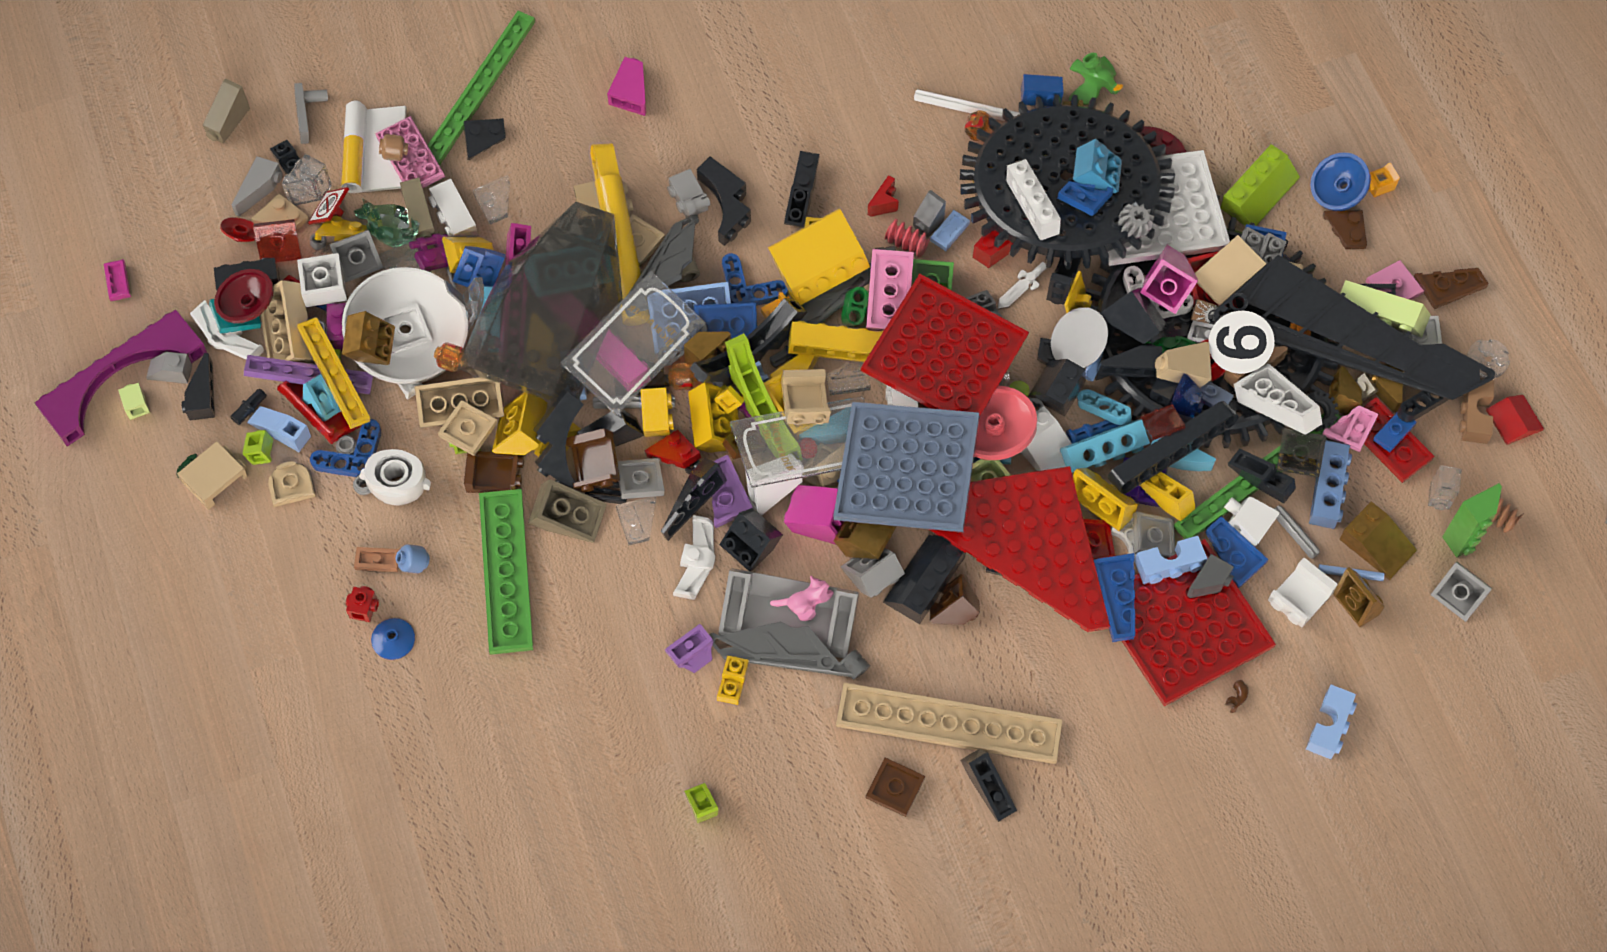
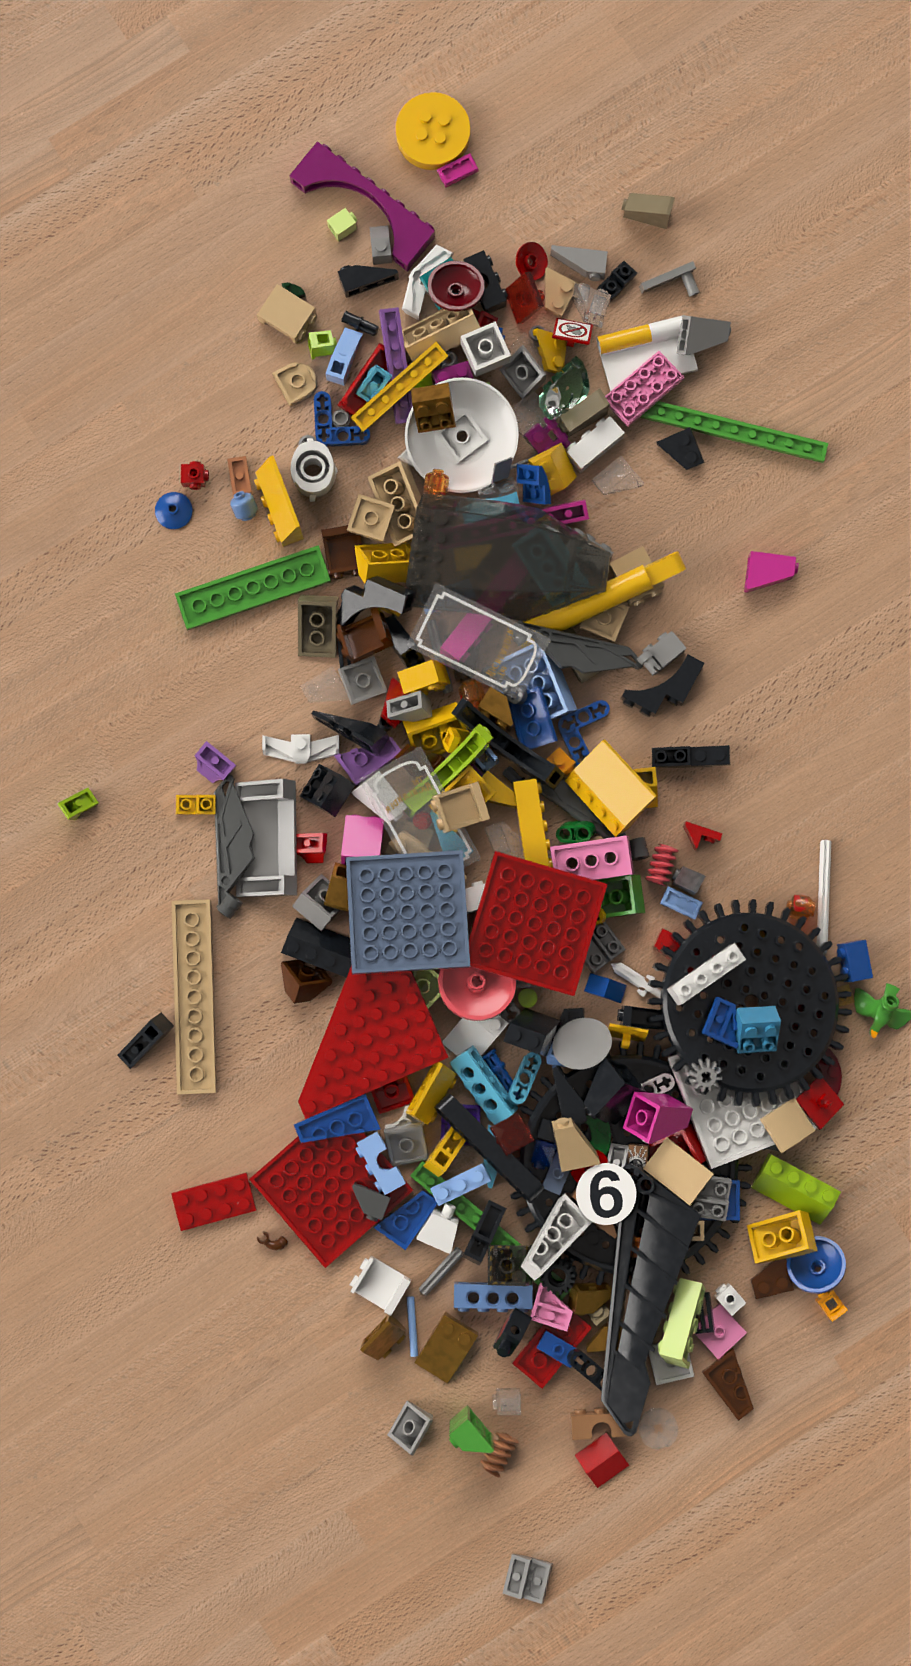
camera: 80 degrees right, 20 degrees up
(65, 295) = (432, 130): none -> yellow brick
(371, 92) = (701, 333): none -> light grey slope
(393, 147) = (639, 371): medium nougat head -> none
(420, 515) = (278, 502): none -> yellow slope
(683, 430) = (409, 707): none -> light grey slope
(804, 602) = (272, 850): bright pink animal -> none
(810, 562) = (311, 846): none -> red slope
(895, 787) = (127, 962): reddish brown plate -> none
(1024, 313) = (605, 988): none -> blue slope
(1179, 145) = (820, 1103): none -> red piece
(1183, 749) = (213, 1201): none -> red plate
(1197, 170) = (787, 1125): none -> tan slope
(1206, 487) = (460, 1184): none -> light blue plate
(1308, 207) = (782, 1237): none -> yellow slope
(1326, 739) = (246, 1326): light blue arch -> none
(1363, 266) = (729, 1298): none -> white brick
(1372, 467) = (507, 1341): none -> black torso

